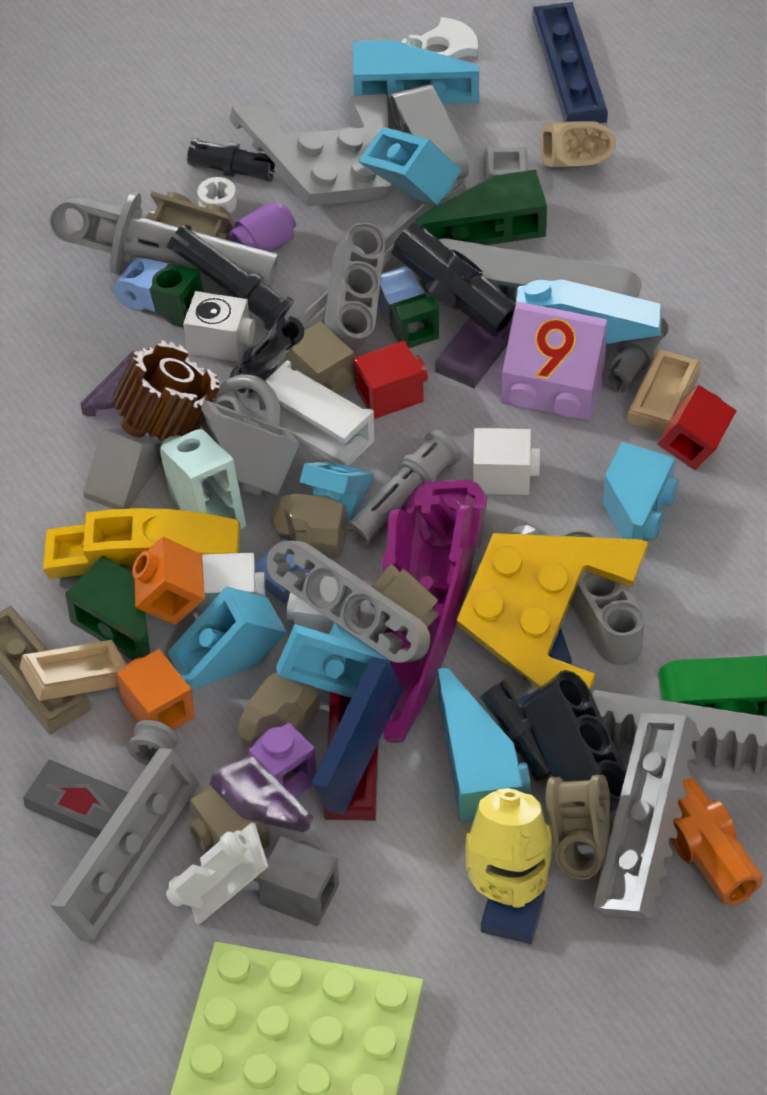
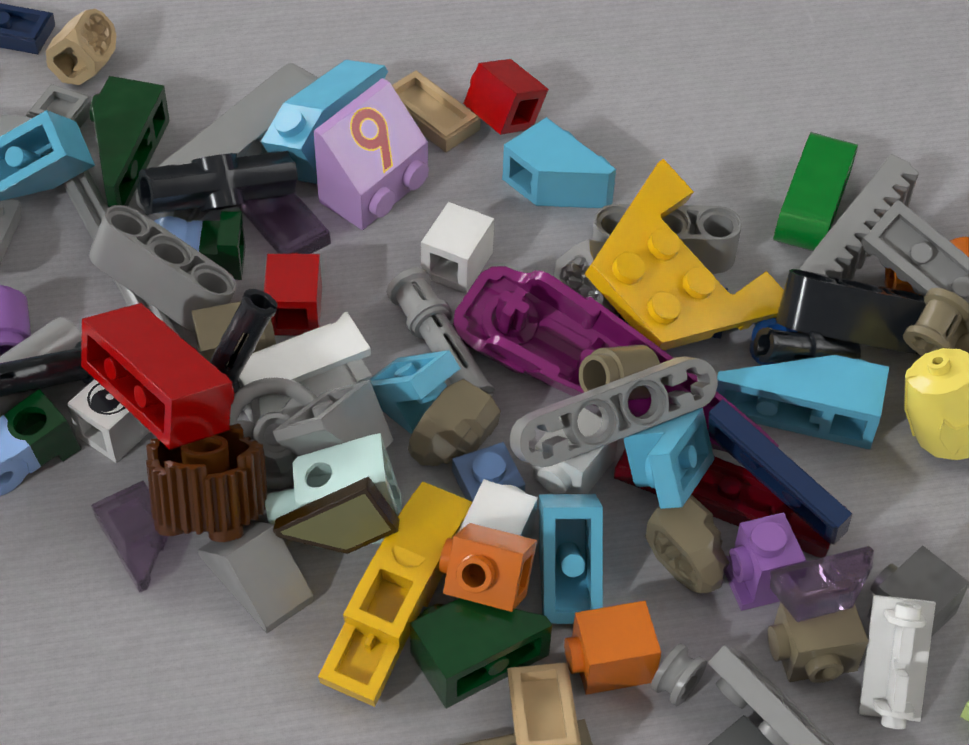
camera: 70 degrees left, 0 degrees up
(161, 477) = (341, 519): none -> tile
(224, 317) = (156, 375): none -> red brick

